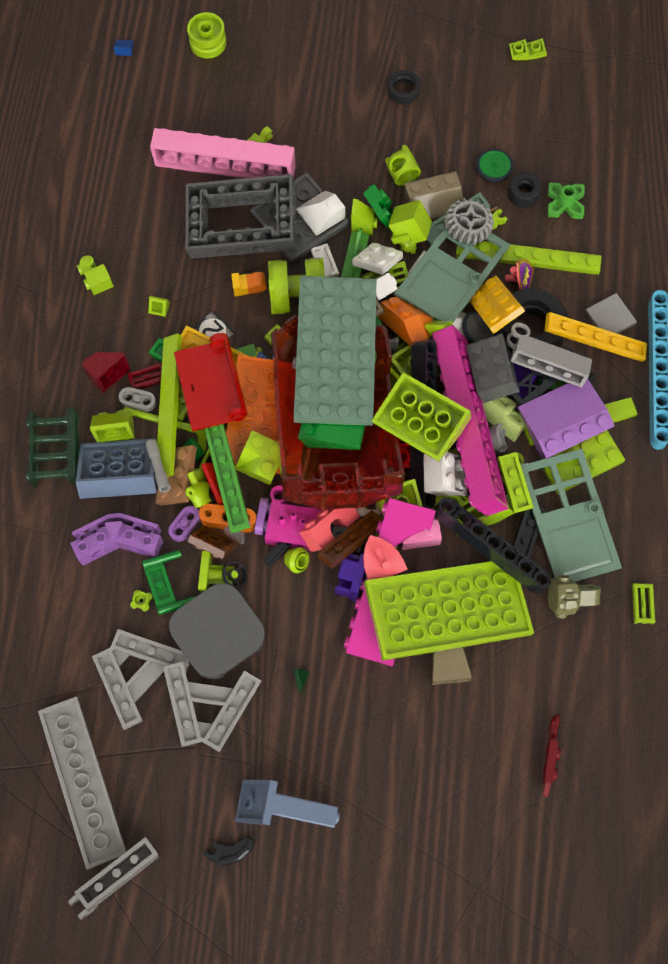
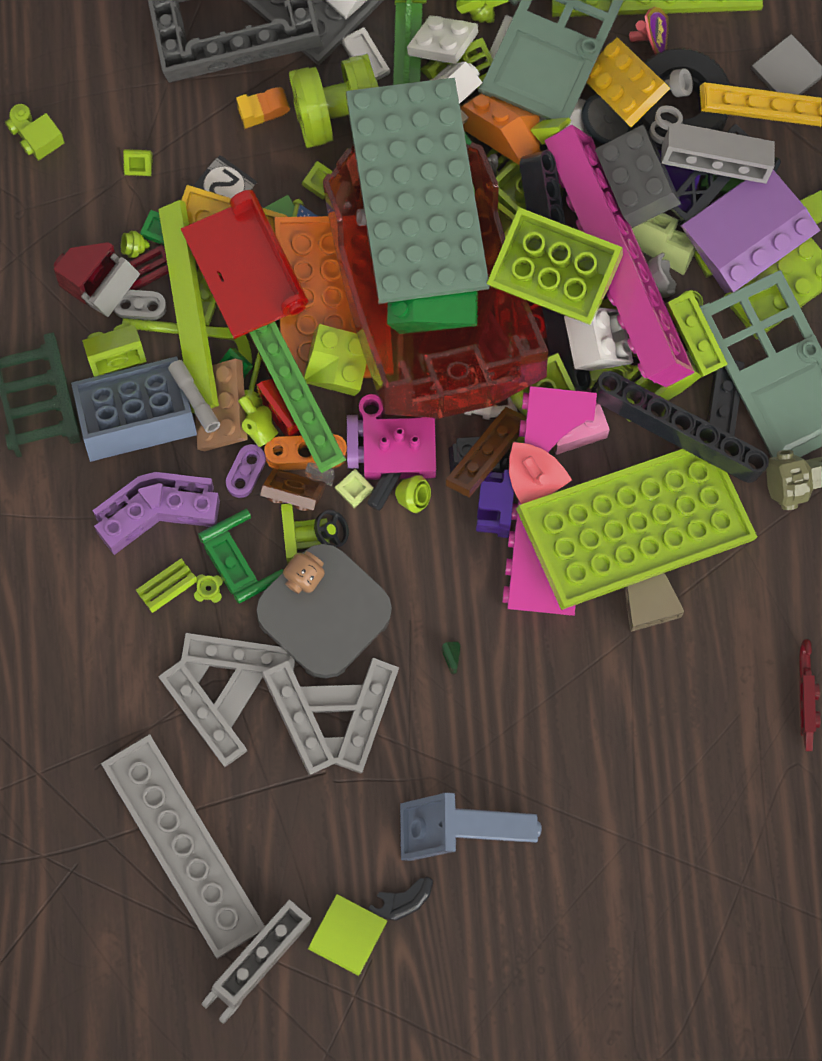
camera: 15 degrees left, 5 degrees up
(112, 591) = (164, 582): none -> lime tile
(121, 383) = (113, 286): none -> light grey hinge
(143, 359) = (133, 244): none -> lime plate
(184, 870) = (347, 935): none -> lime slope
(206, 601) = (303, 572): none -> medium nougat head
(257, 549) = (354, 488): none -> yellowish green tile
(318, 532) = (438, 449): coral arch -> none
(533, 310) = (680, 82): none -> light grey tile

